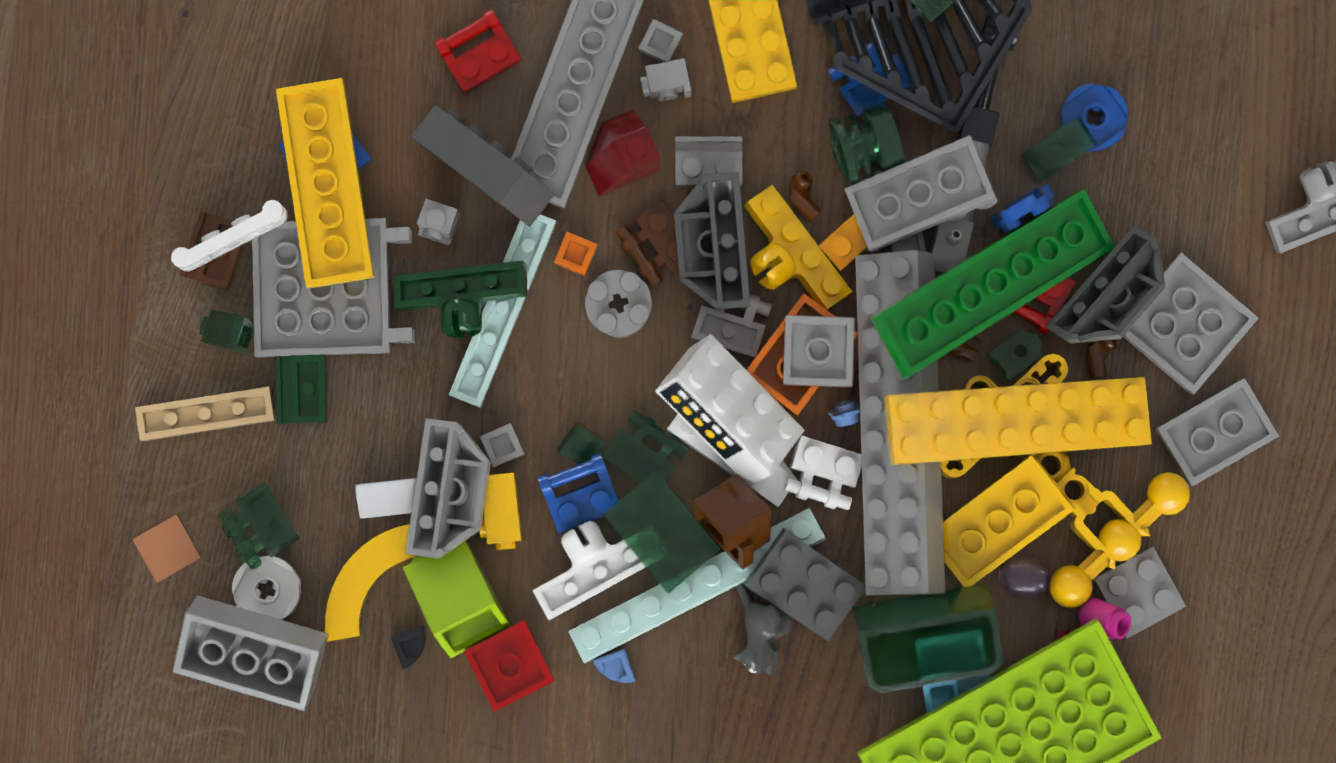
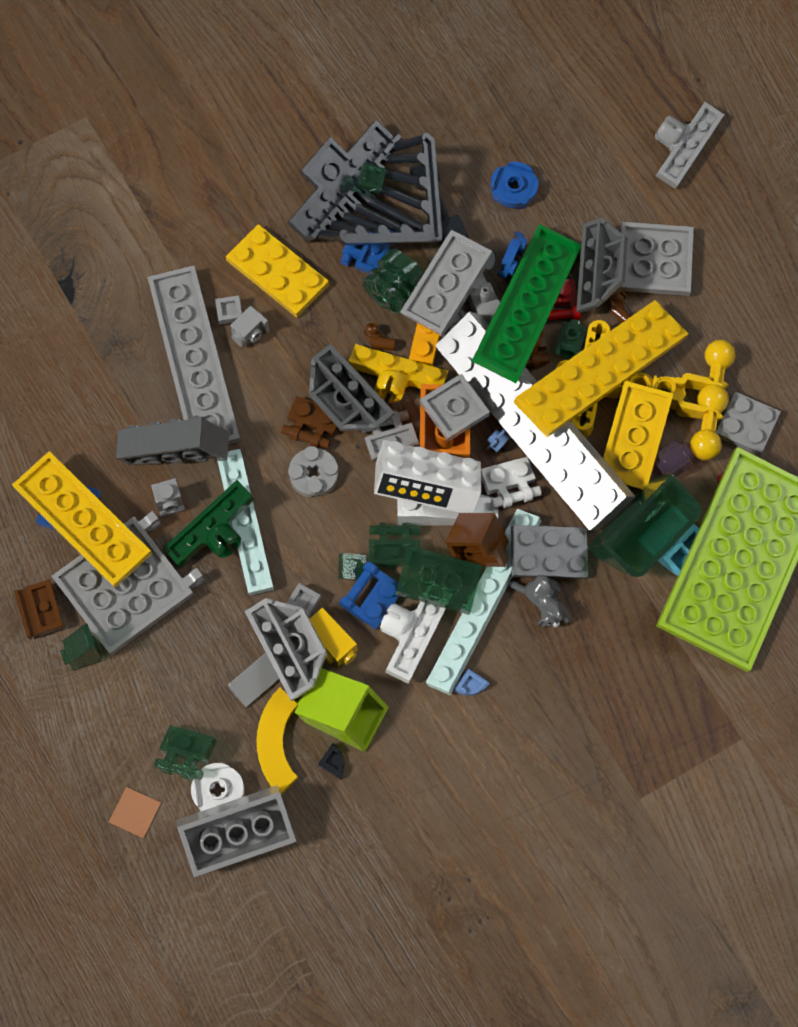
camera: 30 degrees left, 15 degrees down
(205, 414) = (102, 710): tan plate -> none
(243, 230) = (39, 598): white plate -> none
(301, 389) = (153, 654): dark green plate -> none
(482, 61) = (128, 392): red plate -> none
(509, 666) = (405, 728): red plate -> none
(575, 253) = (266, 460): orange plate -> none
(621, 153) = (254, 383): dark red slope -> none
(706, 156) = (299, 356): light grey plate -> none
(1059, 148) = (507, 212): clear green plate -> none
(1111, 617) = (744, 441): dark pink brick -> none
(1217, 432) = (720, 304): light grey plate -> none

